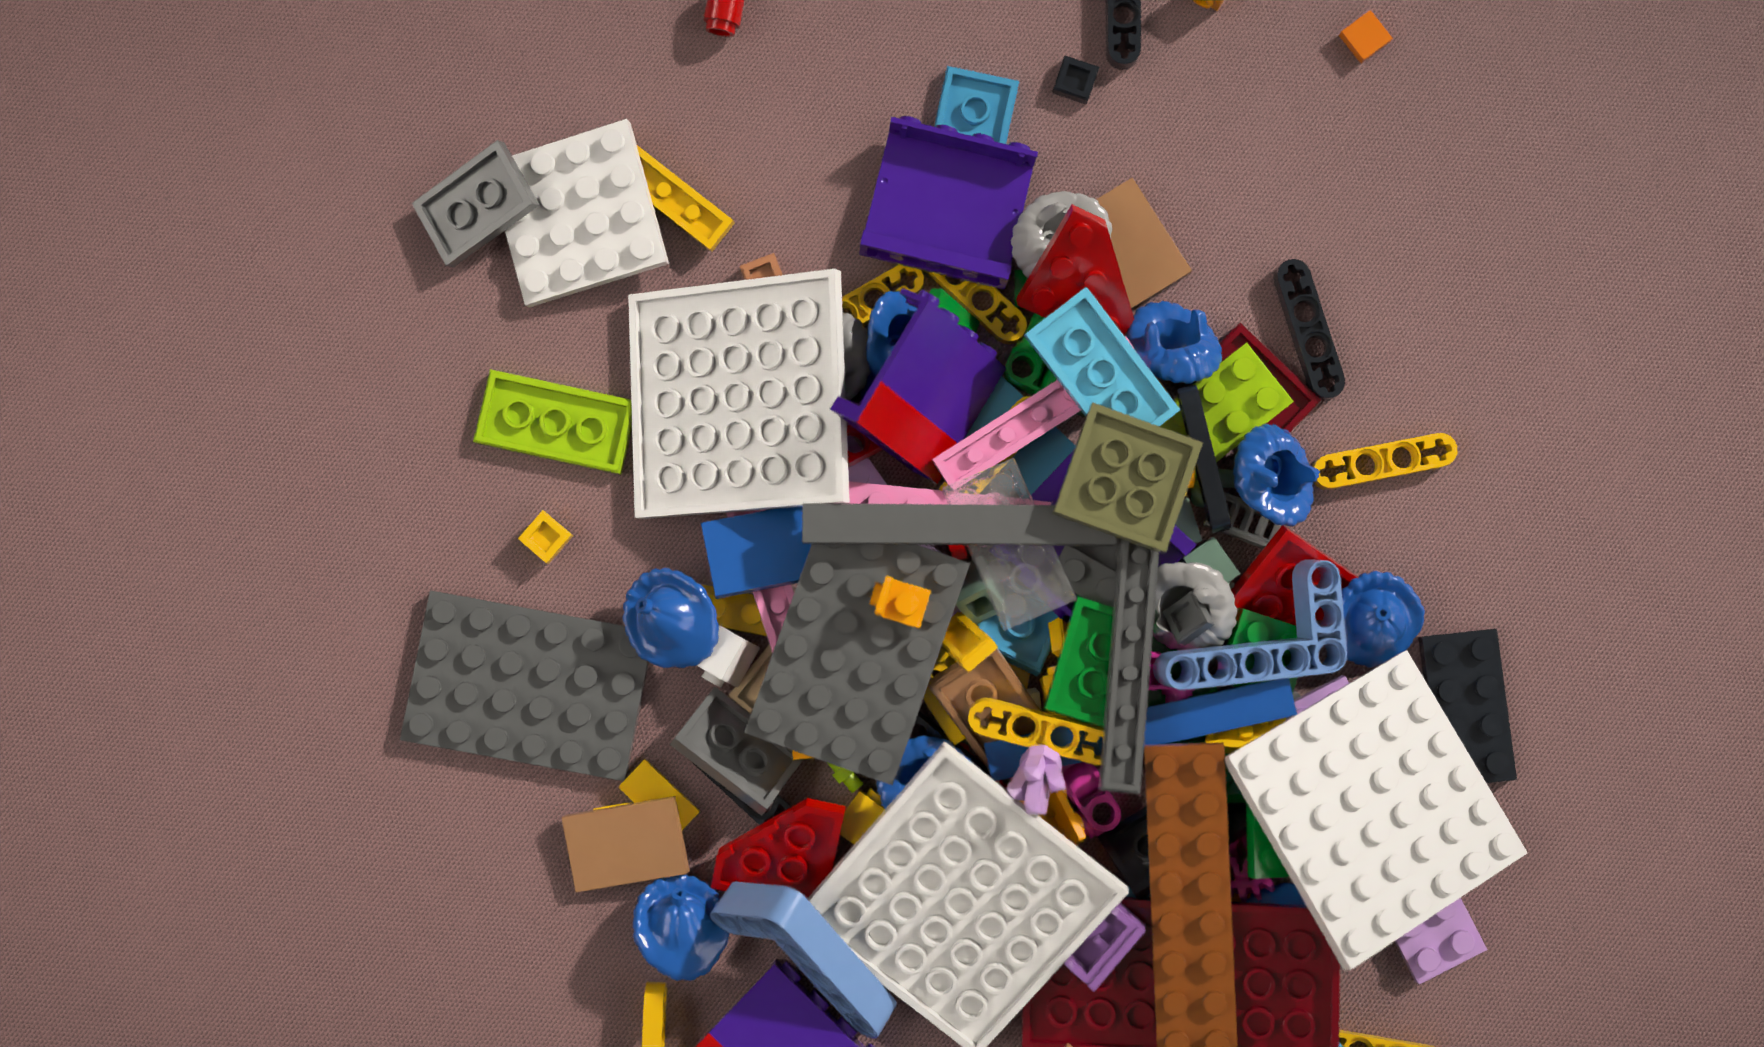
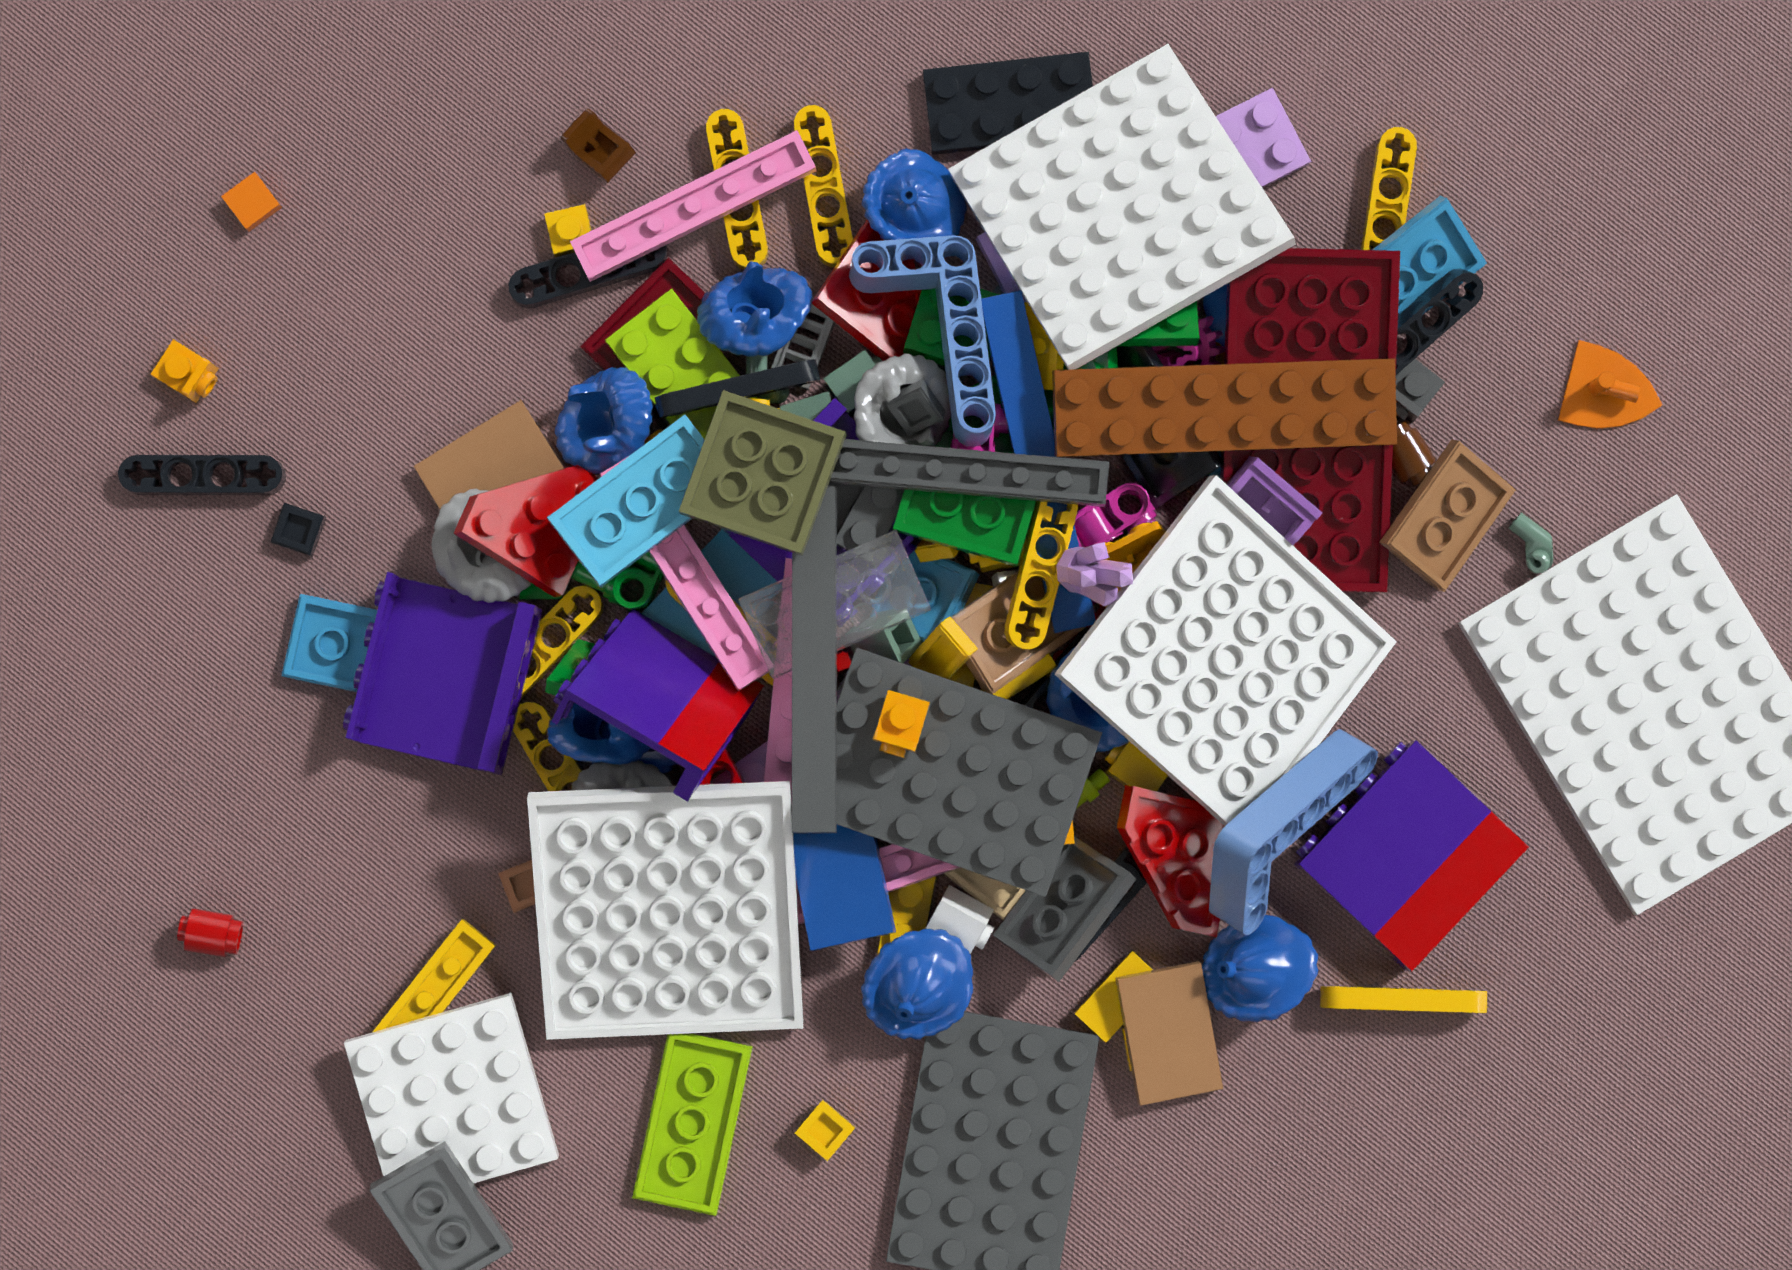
camera: 85 degrees left, 0 degrees up
(1344, 313) = (566, 226): none -> yellow plate
(1369, 421) = (693, 206): none -> bright pink plate
(1388, 539) = (824, 186): none -> yellow beam
(1422, 336) = (597, 145): none -> reddish brown bracket

